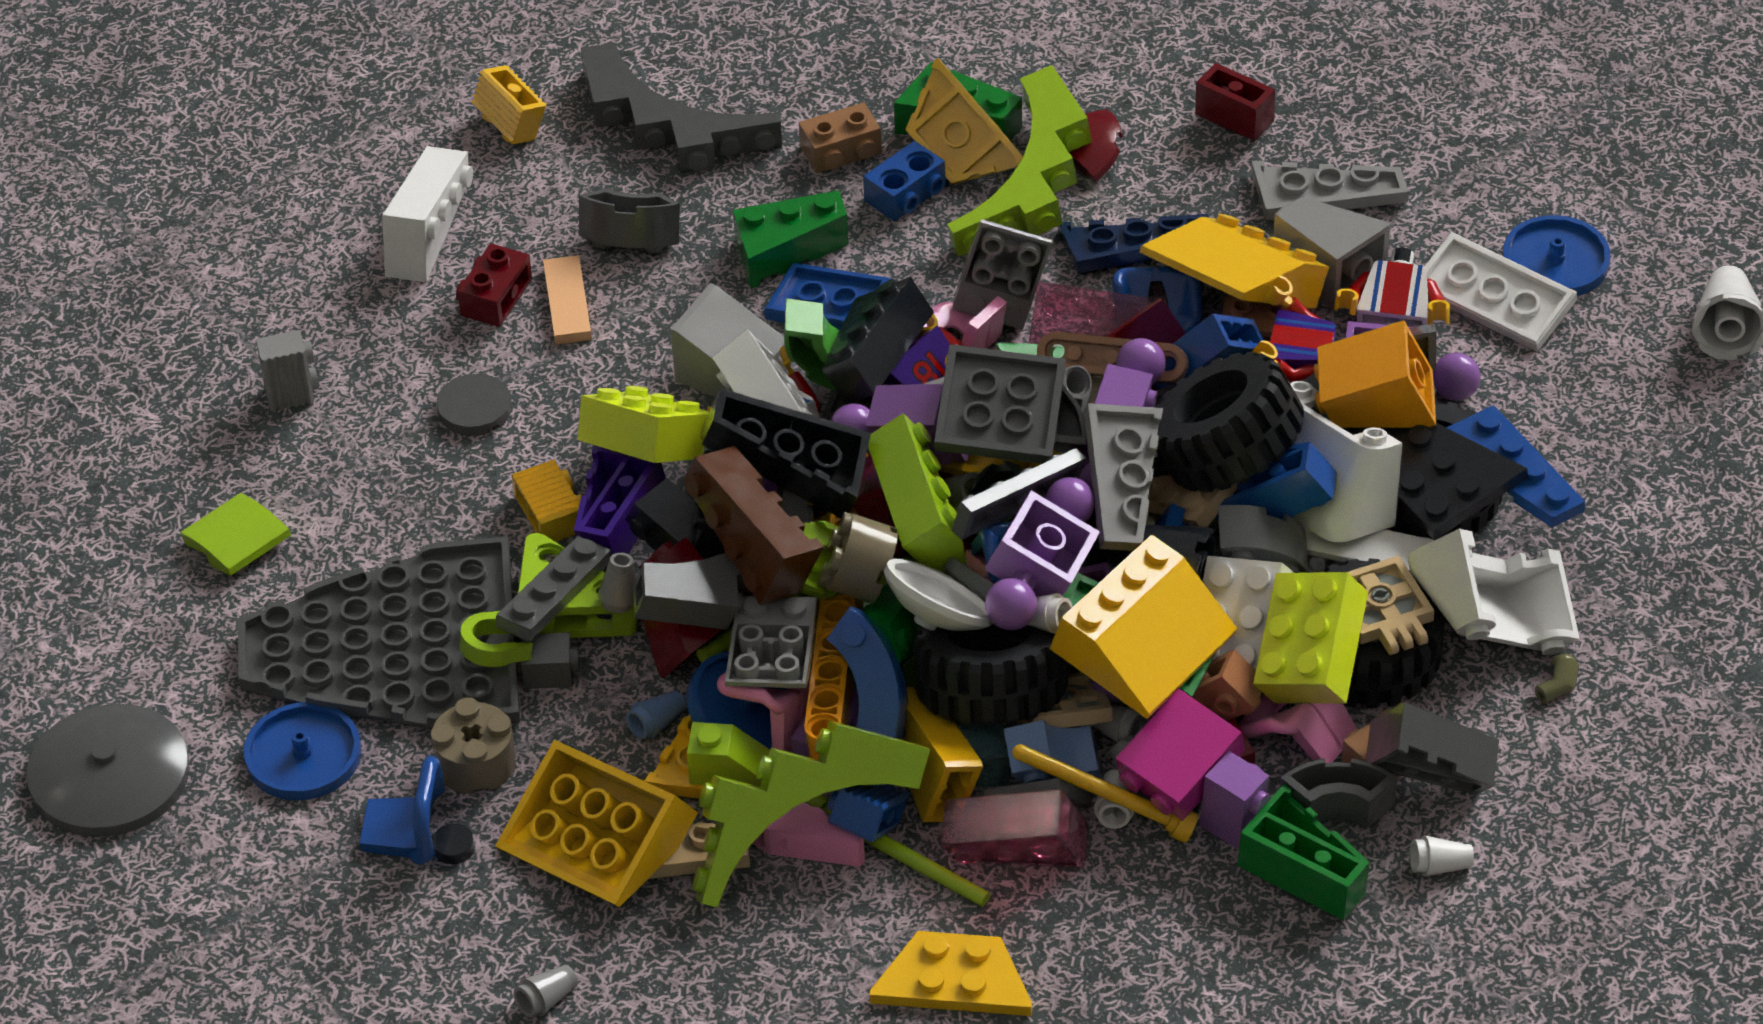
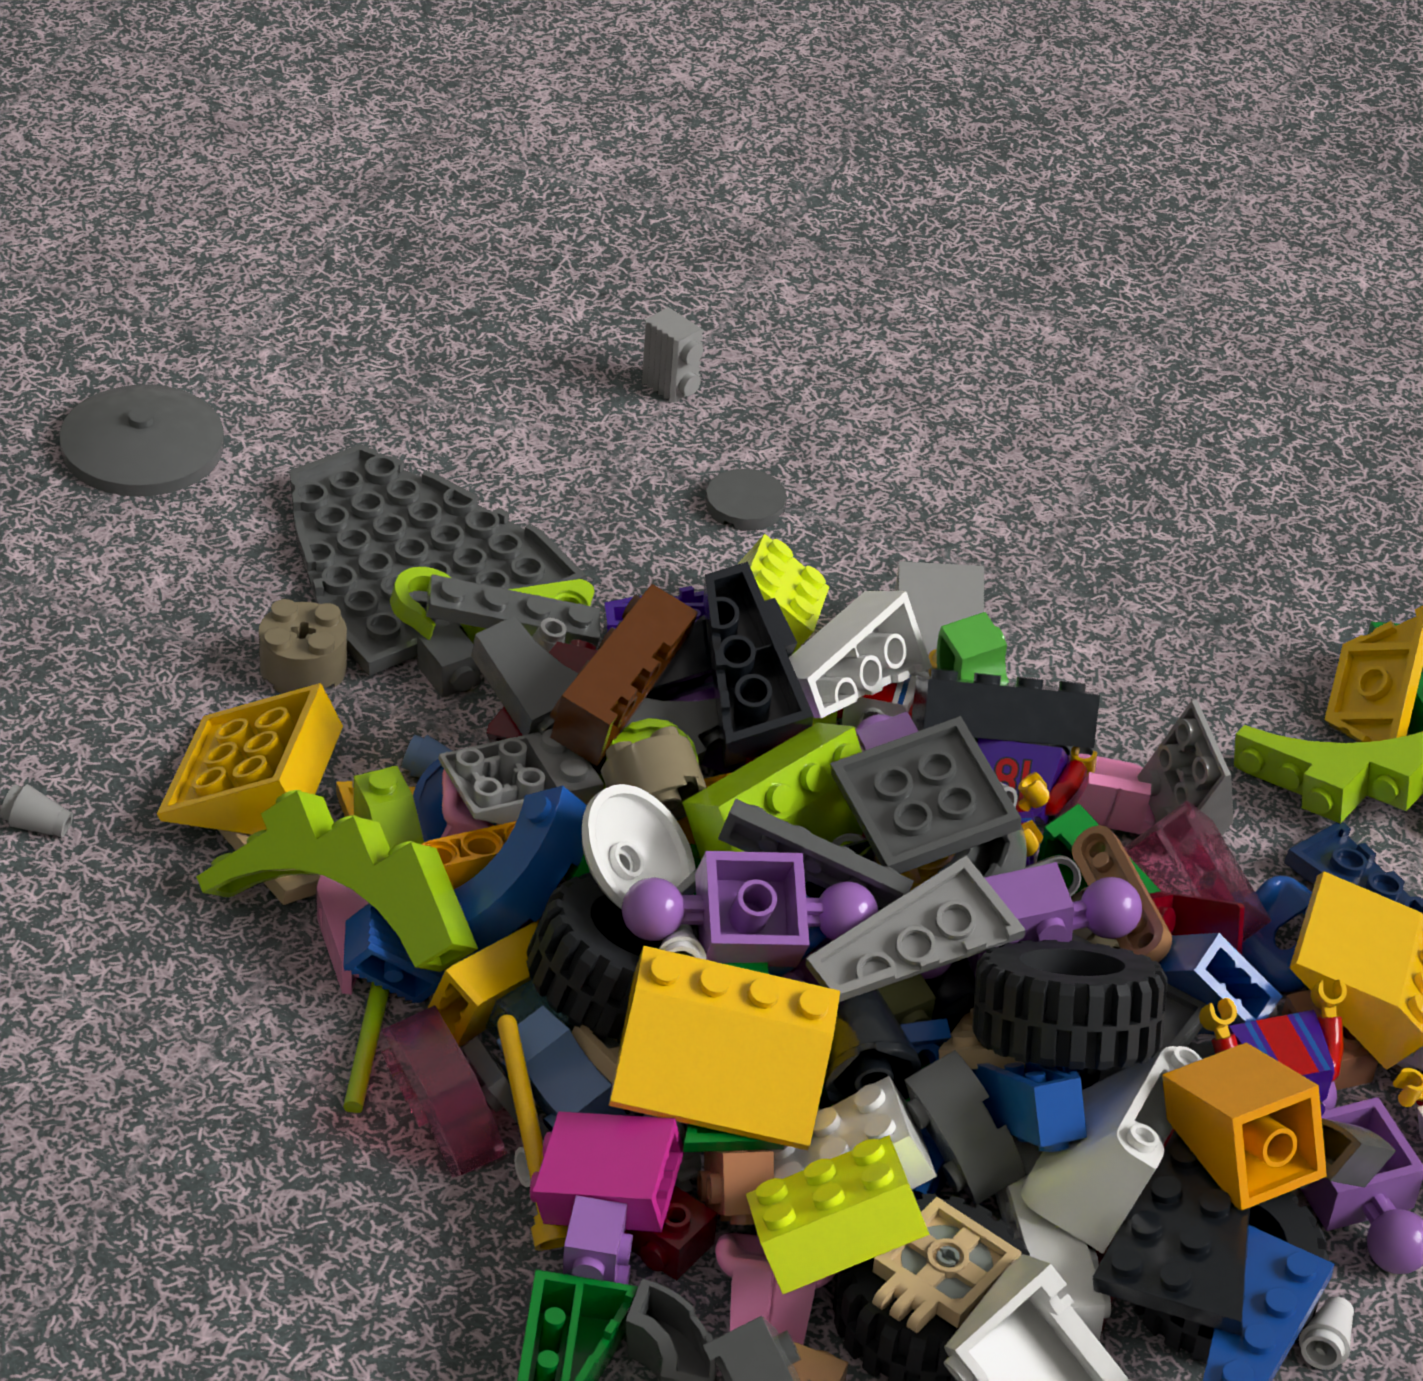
camera: 55 degrees right, 5 degrees down
(235, 533) = (468, 409): lime slope -> none
(302, 751) = (239, 548): blue piece -> none
(403, 824) = (196, 636): blue piece -> none
(423, 212) = (948, 370): white wedge -> none
(453, 843) = (187, 686): black tile -> none
(494, 285) = (900, 452): dark red brick -> none
(508, 104) = (1130, 372): yellow brick -> none
(547, 499) = (656, 567): yellow brick -> none
(567, 300) = (929, 510): light nougat tile -> none
(629, 220) = (1054, 504): dark grey brick -> none
(658, 121) = (1203, 479): dark grey arch -> none
(788, 233) = (1137, 619): green wedge -> none
(821, 285) = (1090, 665): blue tile -> none
(840, 137) = (1305, 612): medium nougat brick -> none
(904, 181) = (1289, 680): blue brick -> none
(953, 974) = (233, 1118): yellow wing -> none

